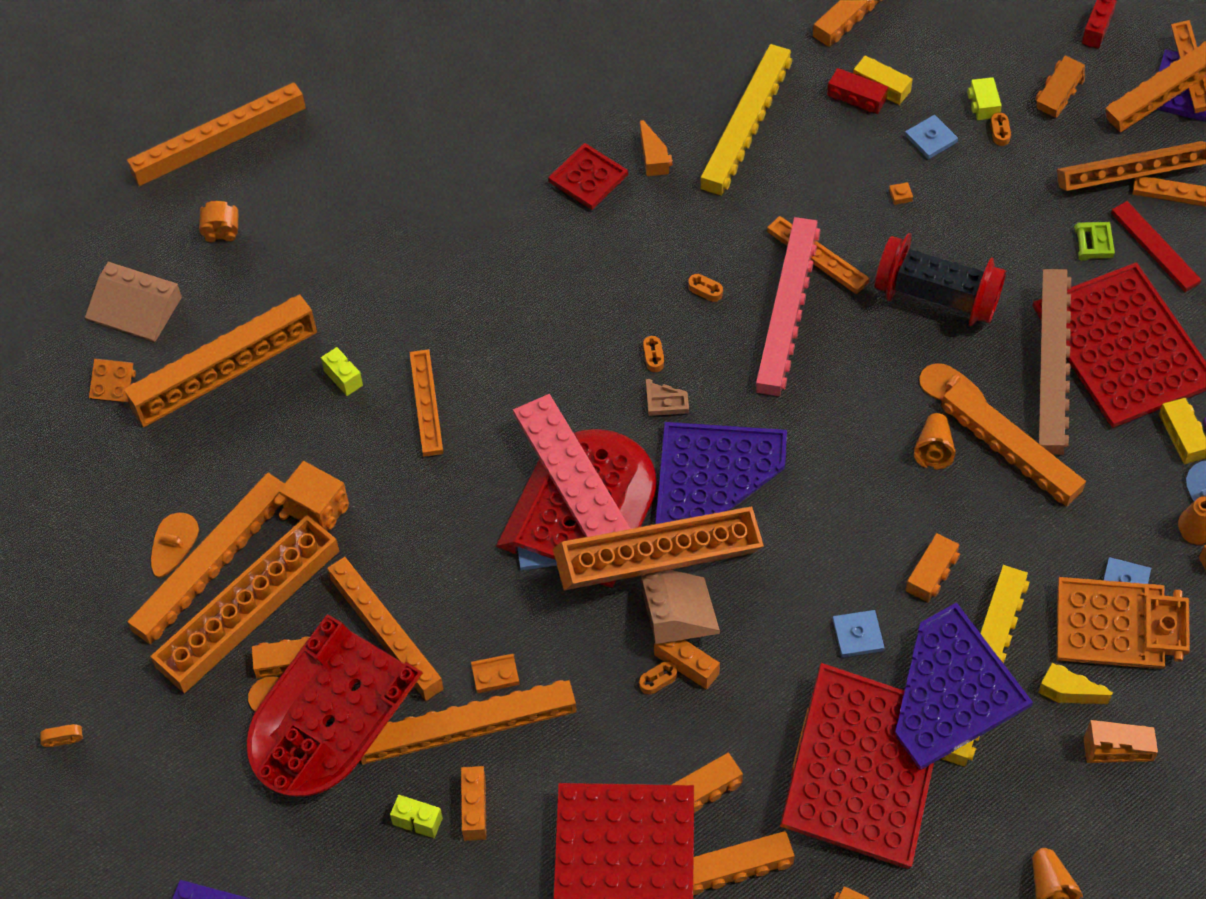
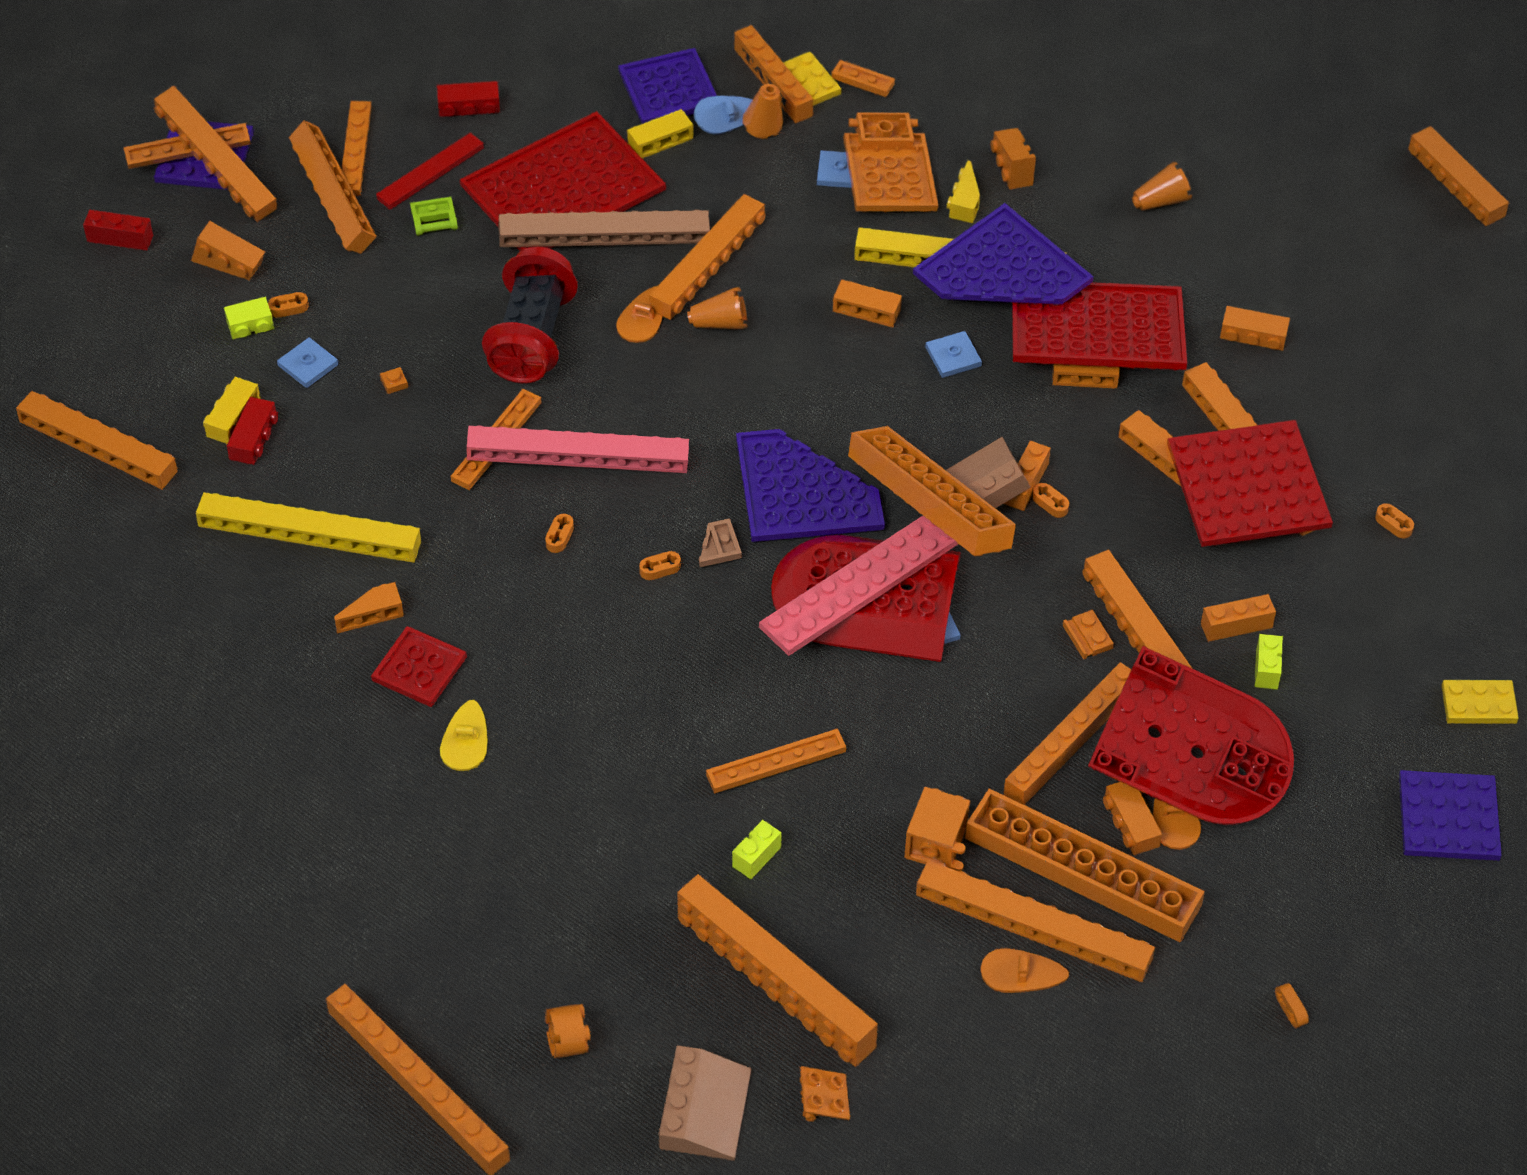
camera: 105 degrees left, 5 degrees down
(514, 201) = (465, 738): none -> yellow shield

